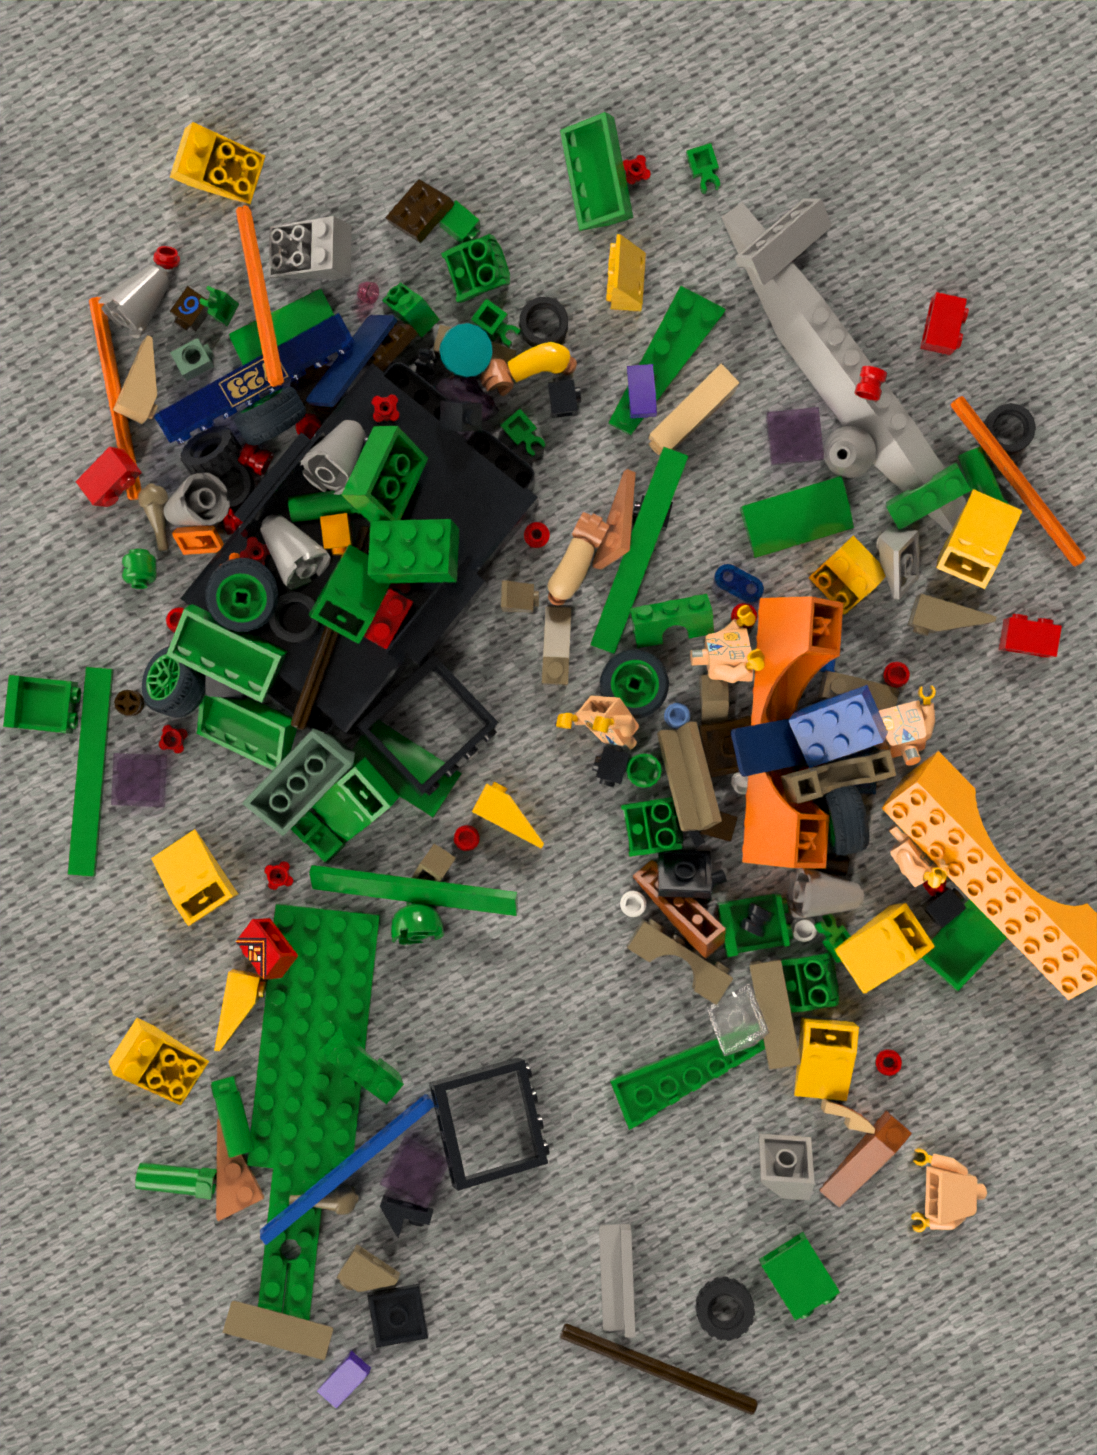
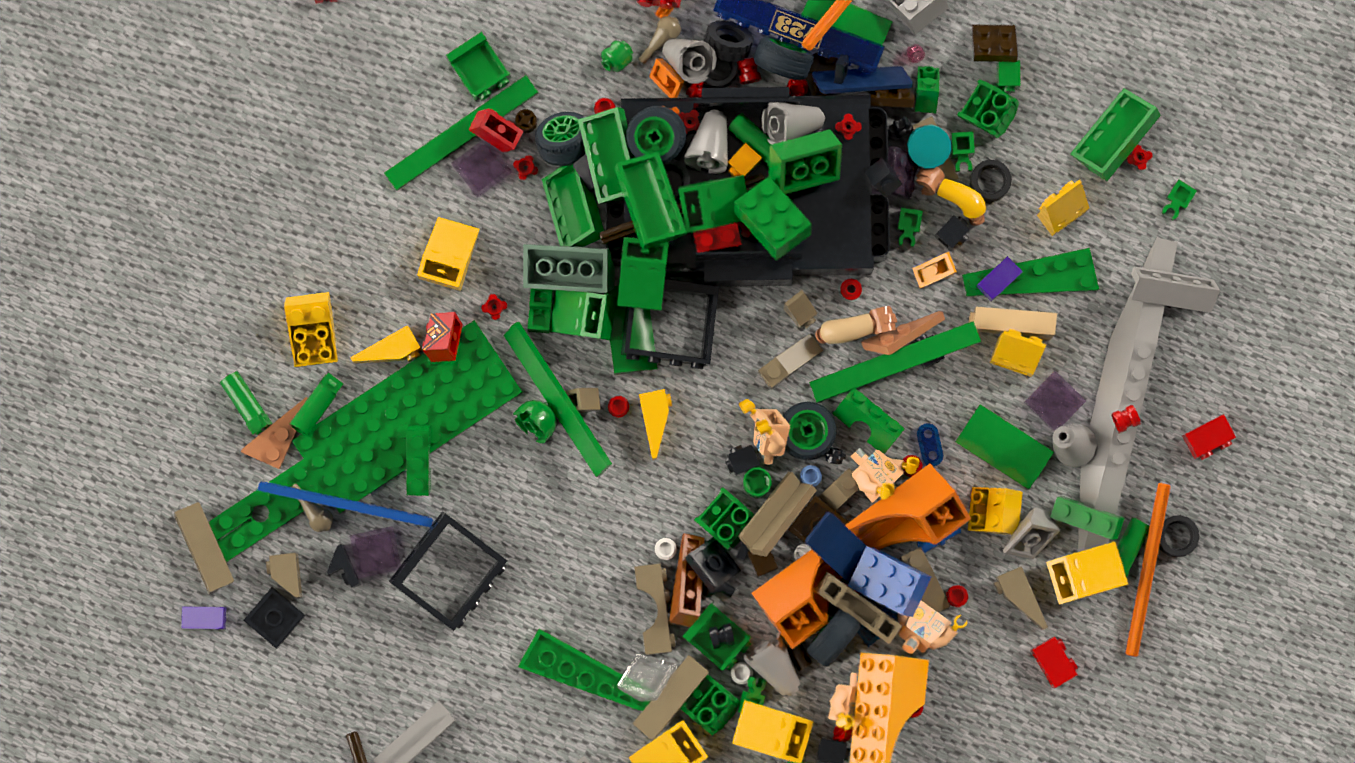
camera: 50 degrees right, 5 degrees down
(113, 738) = (496, 130): none -> red brick
(298, 652) = (650, 200): none -> green slope
(325, 369) = (841, 69): none -> black tile
(363, 716) = (642, 275): none -> green slope
(584, 443) = (934, 270): none -> light orange slope
(678, 678) = (835, 456): none -> black plate
(725, 431) = (1017, 352): none -> yellow slope

